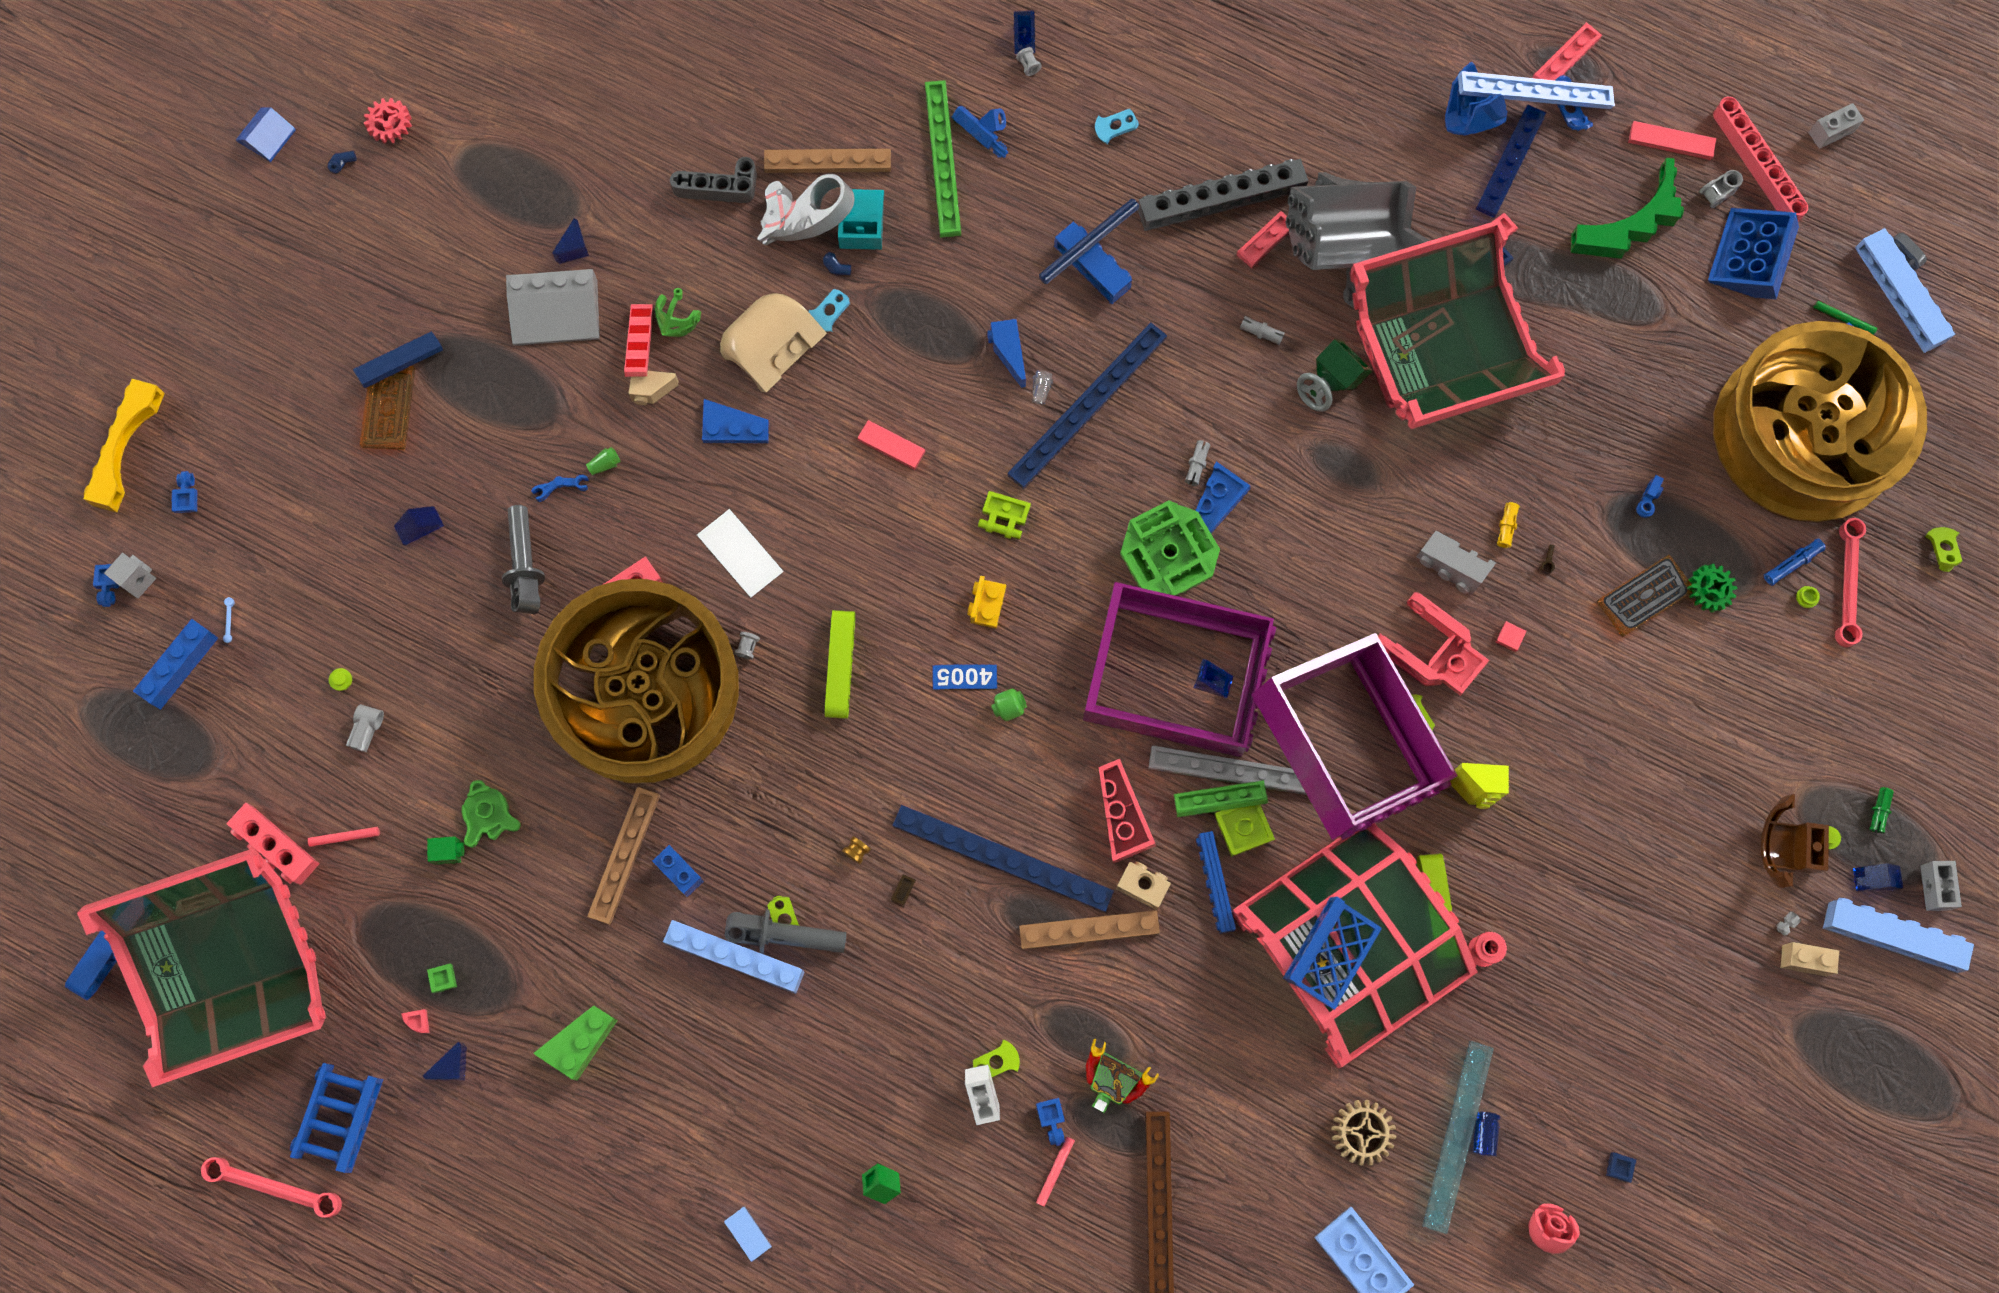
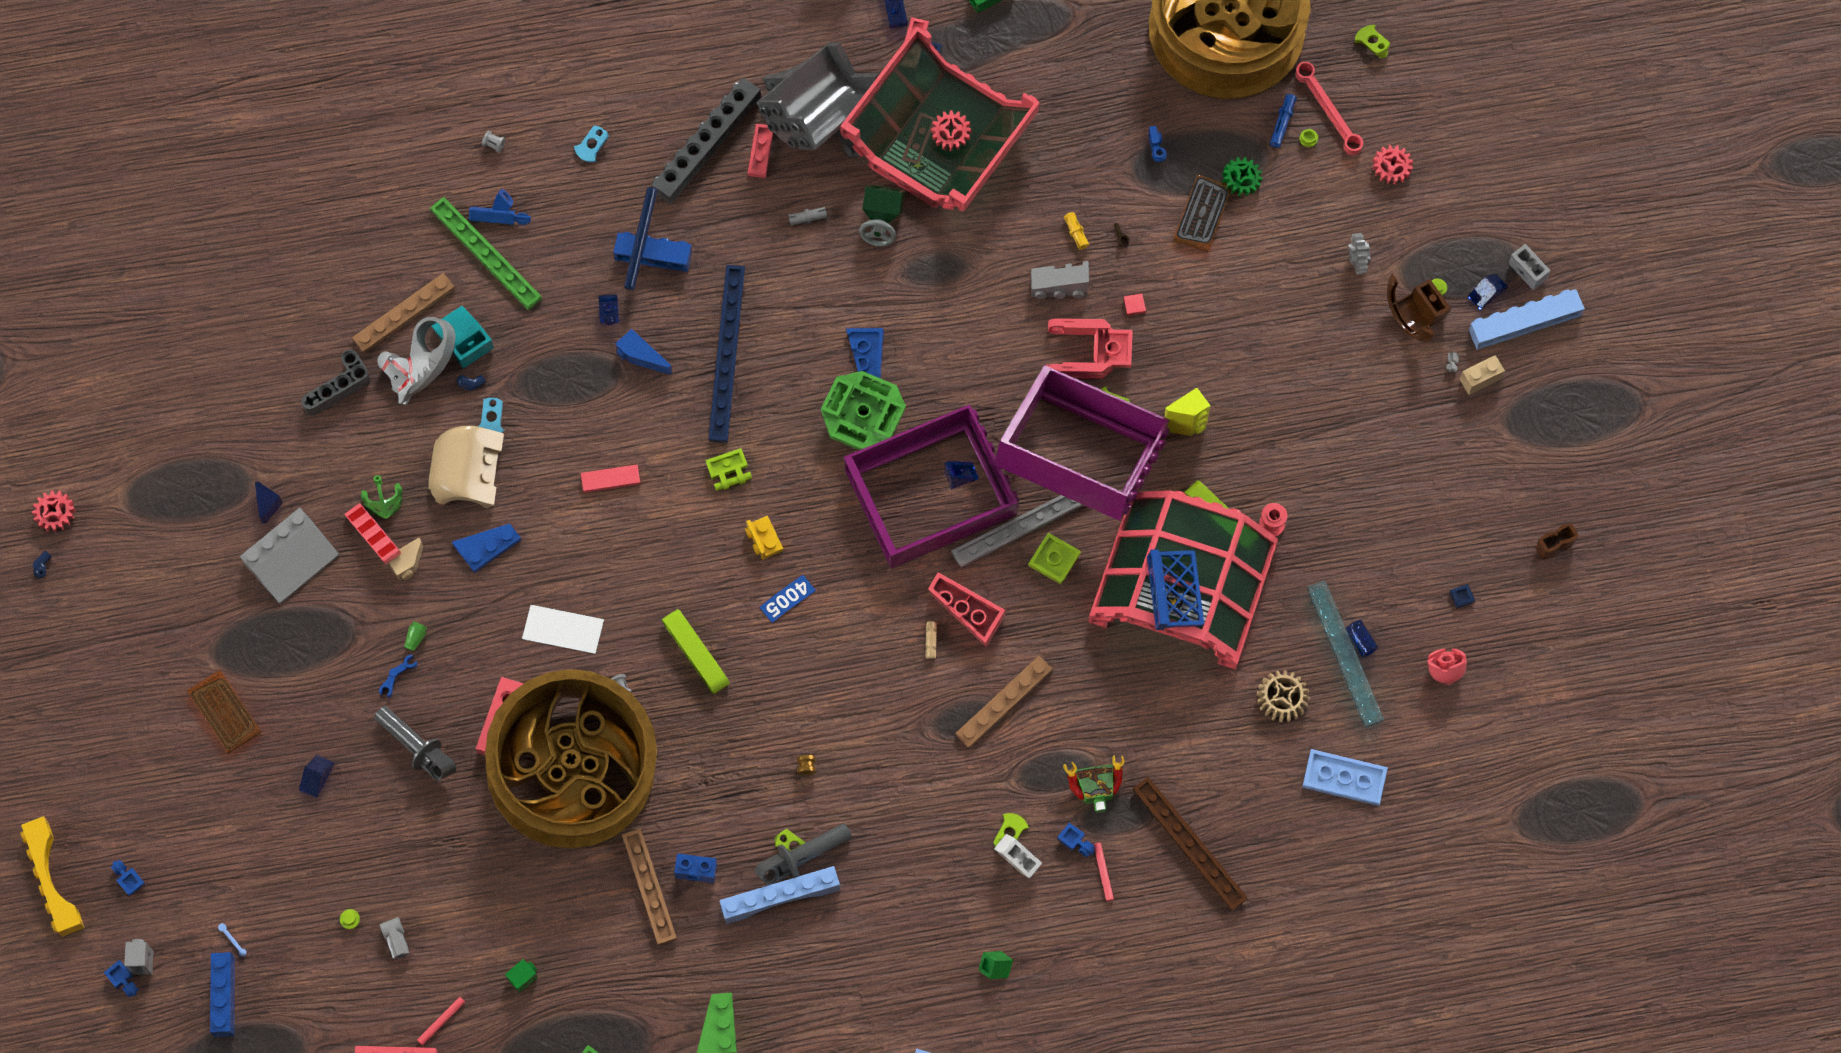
camera: 35 degrees left, 5 degrees down
(397, 359) = (206, 672): dark blue tile -> none
(486, 812) = (528, 931): bright green tile -> none
(903, 890) = (859, 769): dark brown piece -> none
(1003, 858) = (909, 698): dark blue plate -> none
(1009, 704) = (833, 593): bright green head -> none
(1011, 295) = (608, 302): none -> clear blue brick
(1024, 30) = (473, 122): clear blue slope -> none
(1041, 385) = (684, 363): clear cone -> none
(1066, 817) = (931, 627): none -> tan axle
(1129, 885) = (1009, 653): tan brick -> none
(1197, 463) = (834, 339): light grey pin -> none
(1215, 882) = (1064, 608): blue piece -> none
(1220, 798) = (1024, 551): bright green tile -> none
(1465, 350) = (959, 130): none -> coral gear
(1758, 1186) = (1556, 541): none -> reddish brown brick
(1774, 747) = (1359, 253): none -> light grey gear
(1863, 685) = (1383, 166): none -> coral gear
(1881, 810) = (1457, 245): green axle -> none

